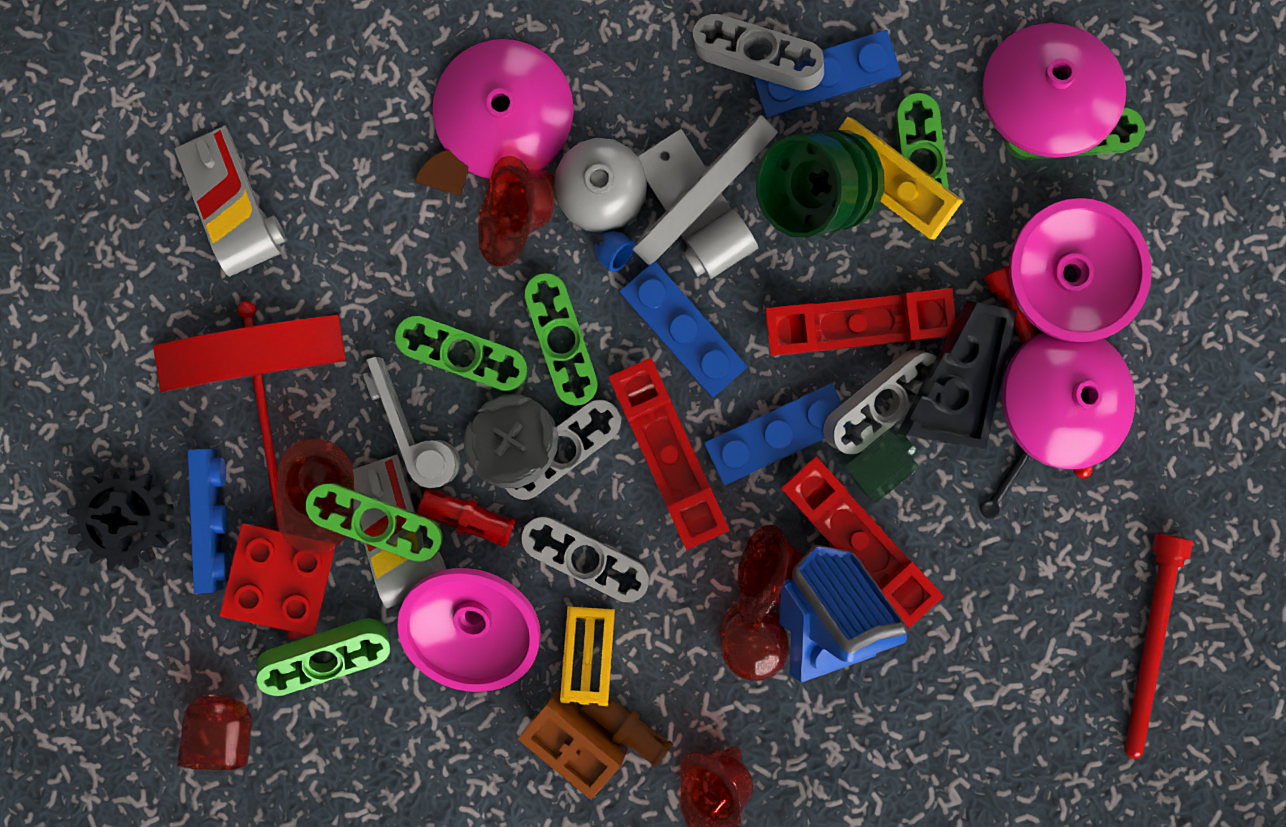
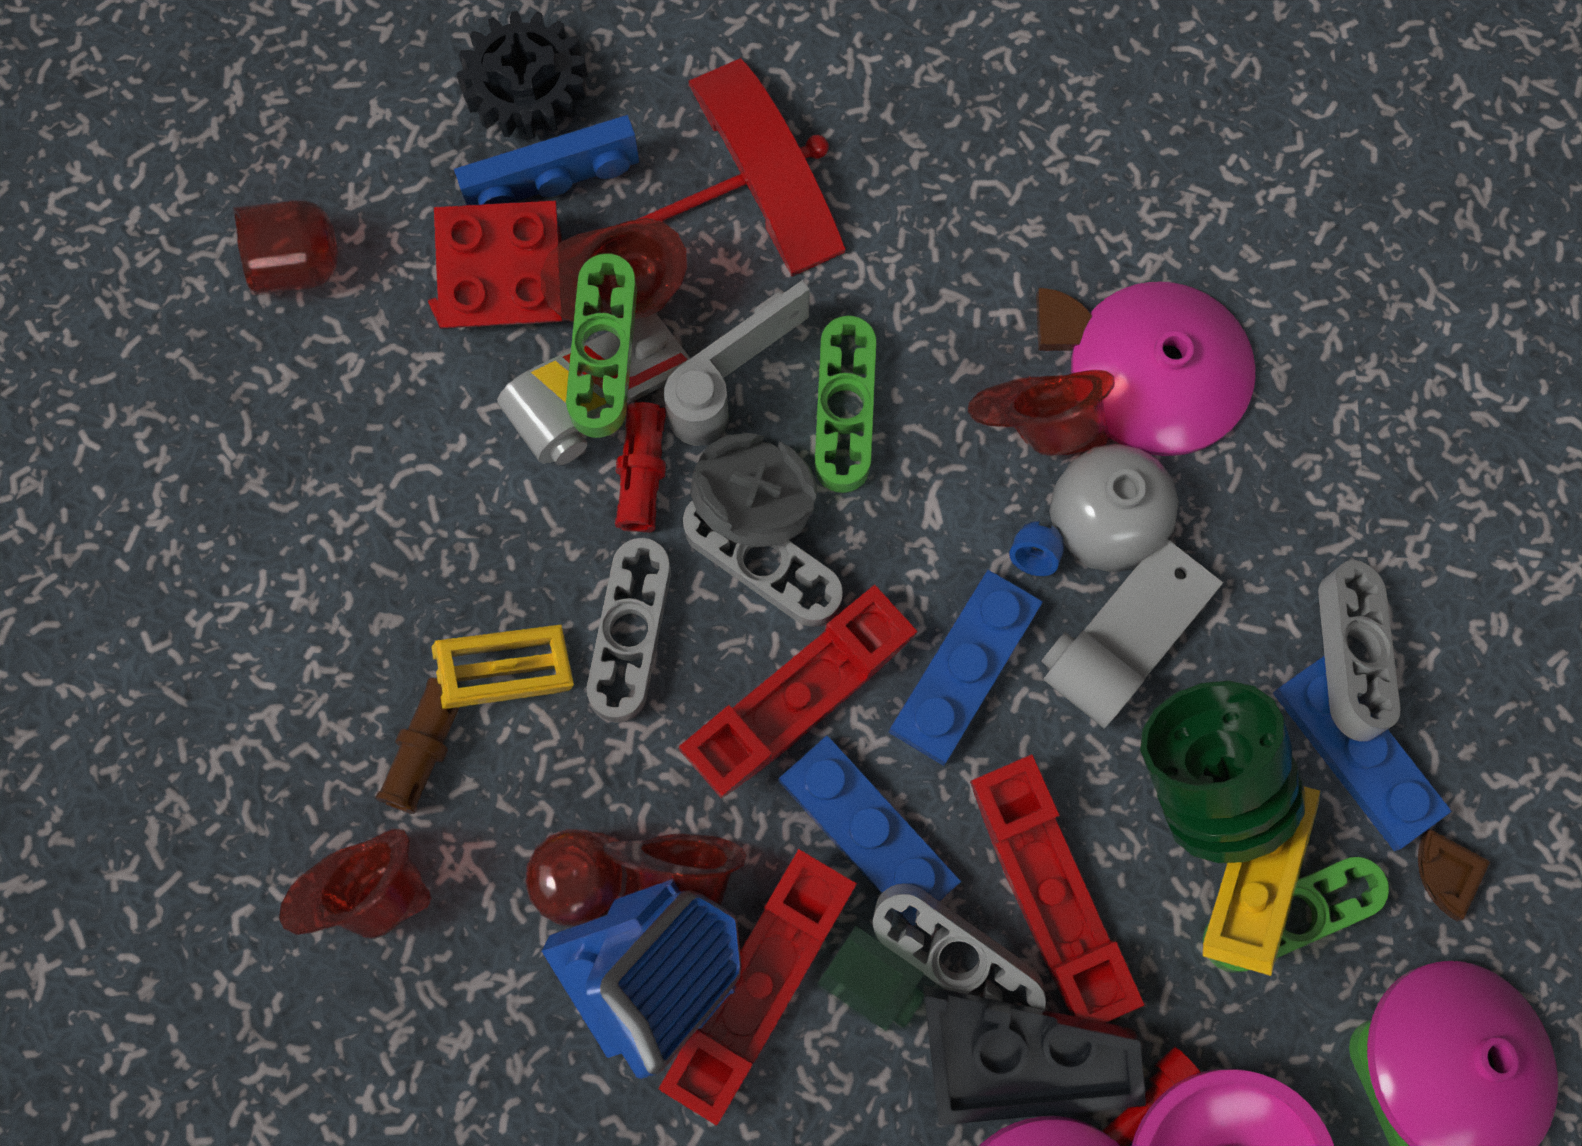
camera: 70 degrees right, 15 degrees down
(226, 203) = (914, 98): light grey door -> none
(312, 673) = (439, 353): bright green beam -> none
(464, 647) = (496, 503): dark pink dish -> none
(539, 310) = (929, 478): bright green beam -> none
(573, 745) = (378, 681): dark orange hinge -> none
(704, 190) = (1154, 629): light grey beam -> none
(926, 46) = (1450, 873): none -> reddish brown tile

